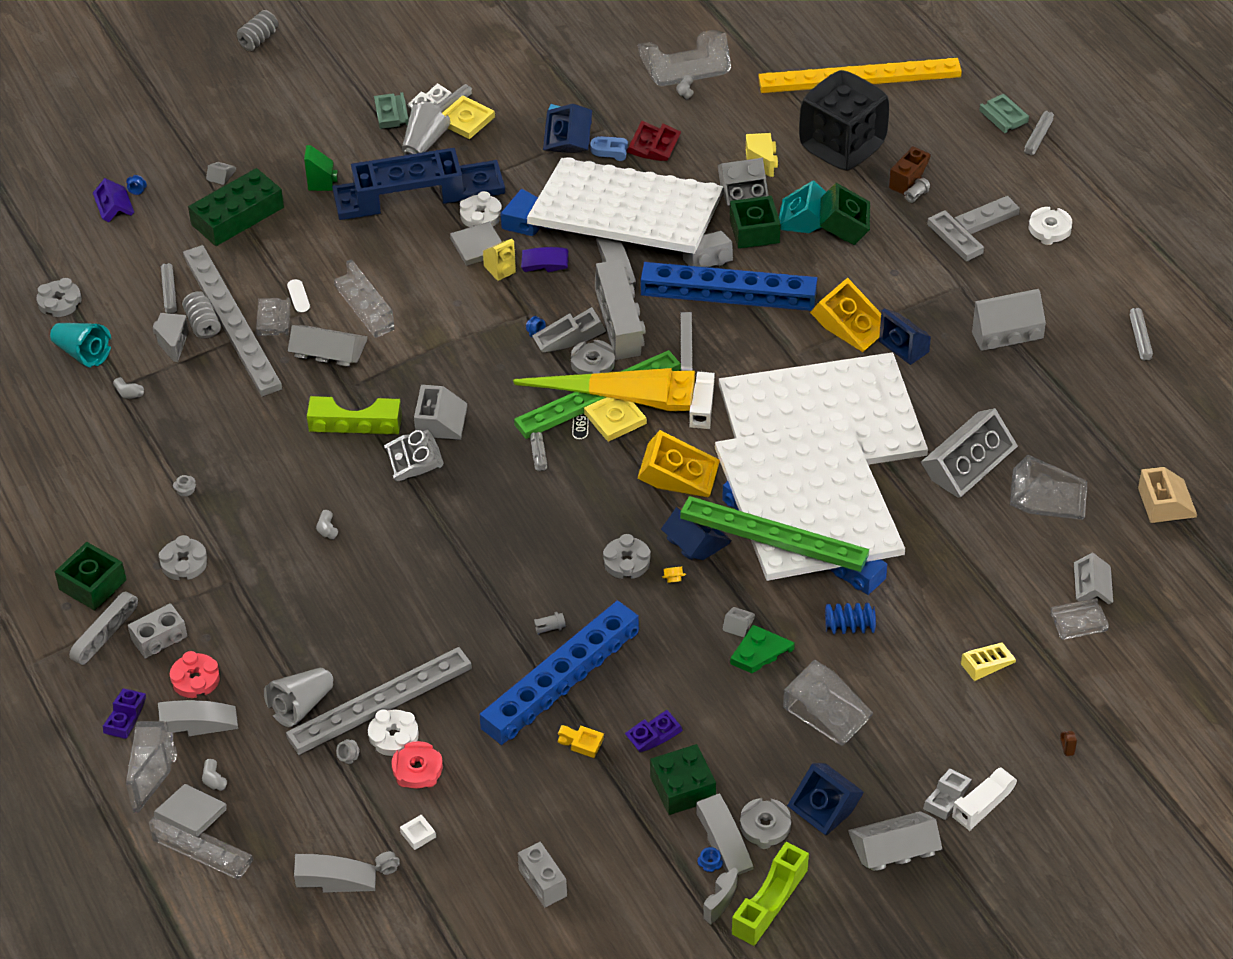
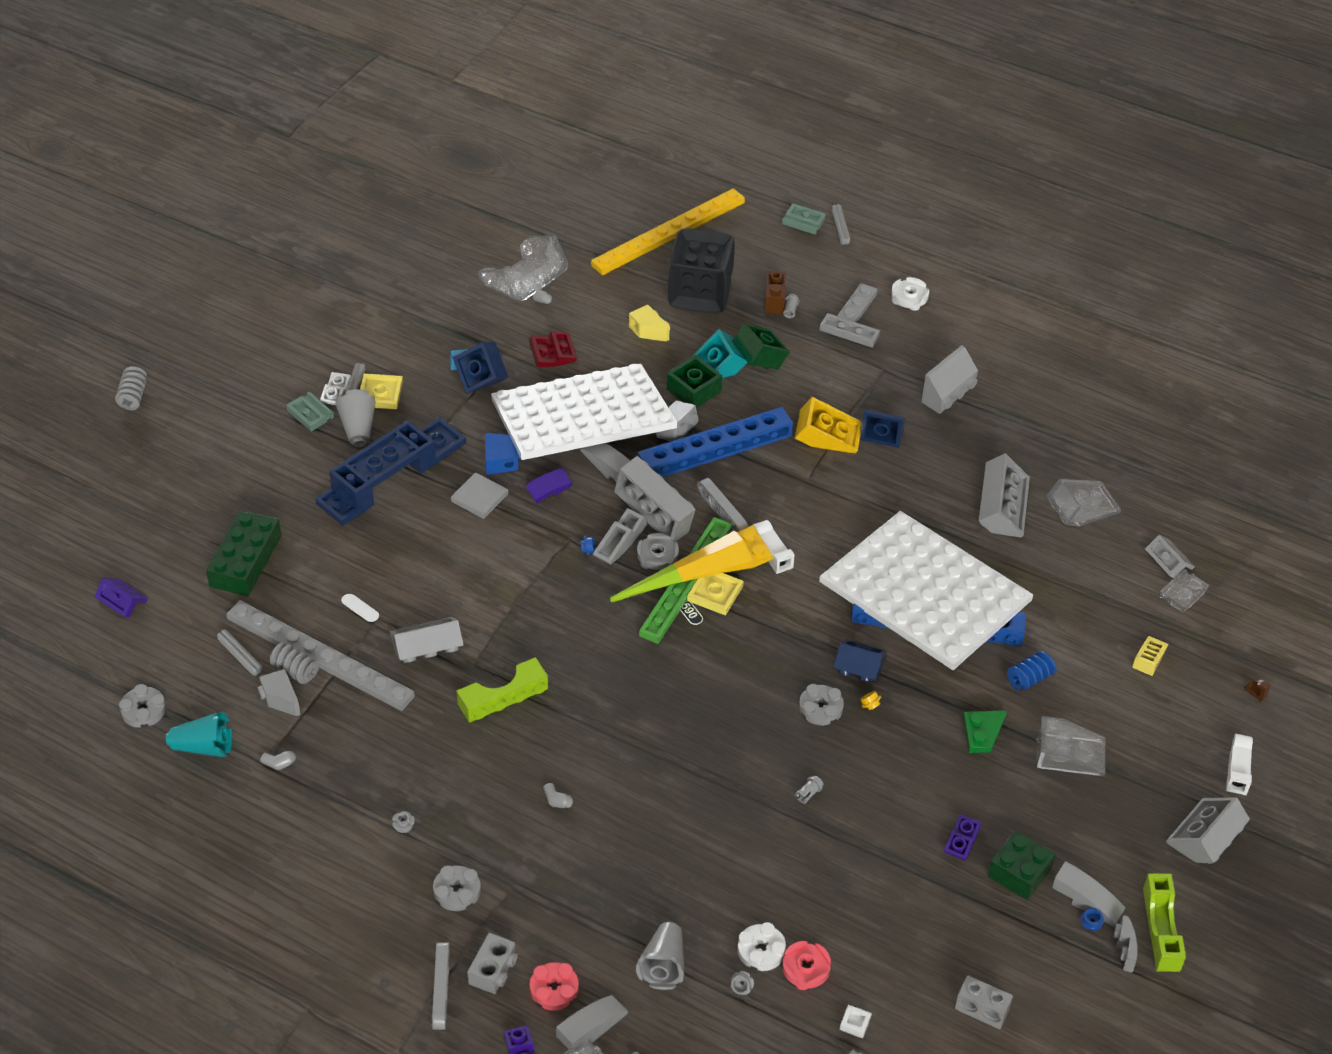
camera: 35 degrees left, 0 degrees up
(90, 575) = (393, 944): dark green brick -> none
(134, 188) = (131, 572): blue plate -> none
(220, 172) = (198, 529): light grey slope -> none
(273, 316) = (355, 636): clear plate -> none
(319, 170) = (295, 490): green slope -> none
(365, 300) = (426, 587): clear fence -> none
(380, 698) = (728, 927): light grey plate -> none
(414, 454) = (580, 701): light grey slope -> none
(440, 412) = (574, 655): light grey slope -> none
(471, 208) = (455, 458): white plate -> none
(500, 259) = (515, 499): light yellow slope -> none
(538, 451) = (678, 649): light grey axle -> none
(559, 672) = (841, 895): blue brick -> none
(582, 741) = (918, 872): yellow plate -> none
(609, 147) = (516, 369): medium blue plate -> none
(678, 466) = (799, 610): yellow slope -> none
(738, 621) = (948, 715): light grey slope -> none
(743, 179) = (654, 352): light grey slope -> none
(761, 834) = (1117, 862): light grey plate -> none
(775, 533) = (937, 628): bright green plate -> none
(824, 797) = (1133, 824): dark blue slope -> none
(859, 389) = (860, 502): white plate -> none
(949, 789) = (1210, 774): light grey slope -> none
(1141, 334) = (1043, 351): light grey axle -> none
(1165, 495) = (1165, 468): tan slope -> none

